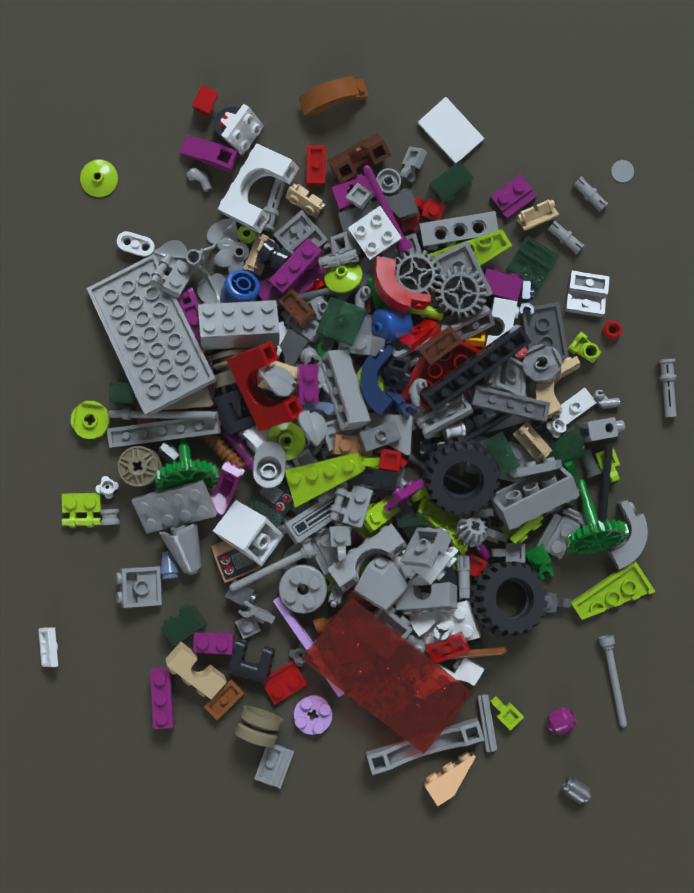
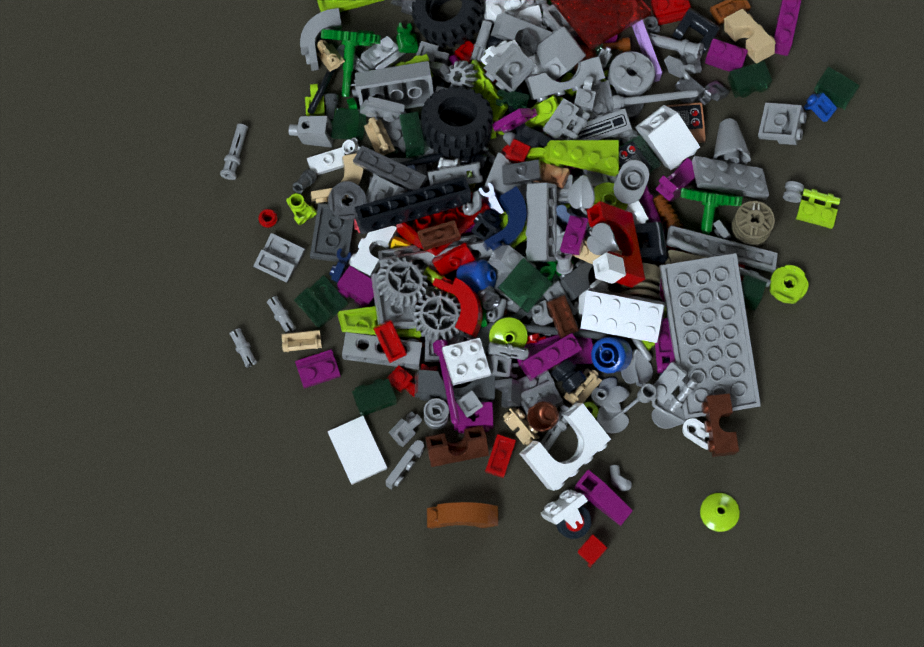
camera: 170 degrees left, 15 degrees down
(48, 647) = (880, 97): white plate -> none
(94, 643) = (836, 88): none -> clear green brick
(105, 618) = (821, 106): none -> blue bracket
(107, 482) = (788, 224): white plate -> none
(125, 266) = (720, 442): none -> copper arch
(169, 567) = (750, 131): sand blue cone -> none
(215, 600) = (714, 91): none -> flat silver plate
(259, 637) = (683, 47): none -> light grey pin
(262, 348) = (609, 268): none -> white panel
(287, 208) = (542, 416): none -> copper hair
(324, 225) = (510, 392): none -> flat silver panel
(373, 305) = (488, 298): none -> flat silver wheel
(401, 130) = (404, 464): none -> light grey hinge
(416, 588) = (529, 41): none -> flat silver tile
(453, 231) = (389, 341): none -> red tile
(589, 378) = (306, 179): none -> dark grey pin
(604, 402) = (298, 156): light grey arm -> none
(607, 511) = (329, 55): none -> tan hinge
(622, 171) = (203, 362): light grey sticker -> none

